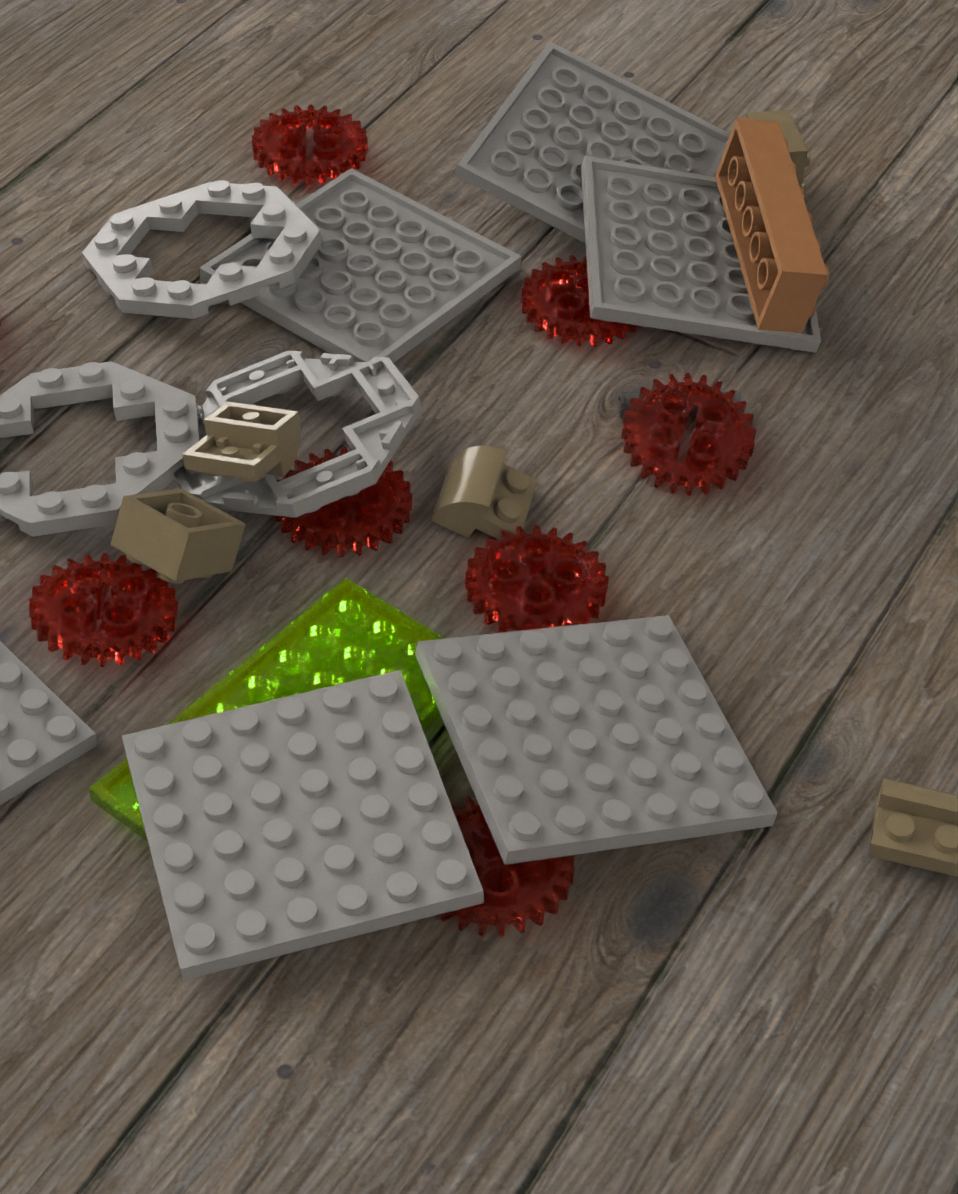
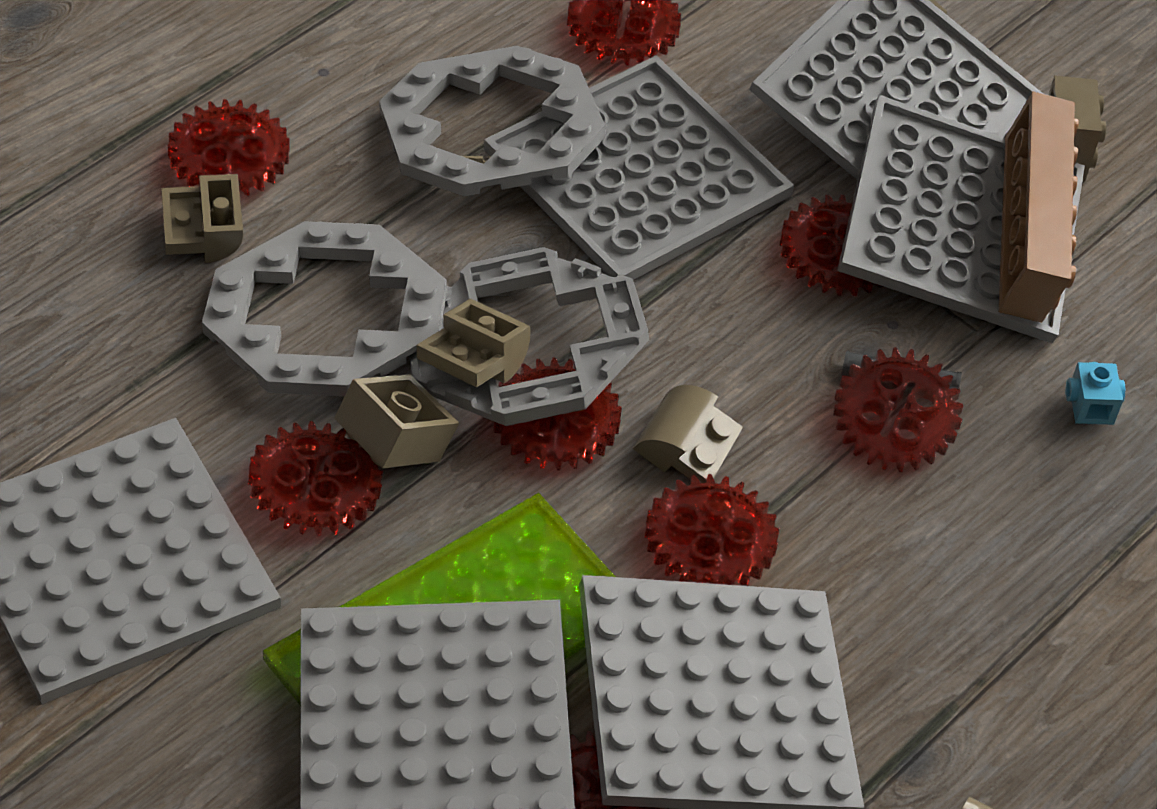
camera: 10 degrees right, 5 degrees up
(876, 384) = (1095, 393): none -> medium azure brick

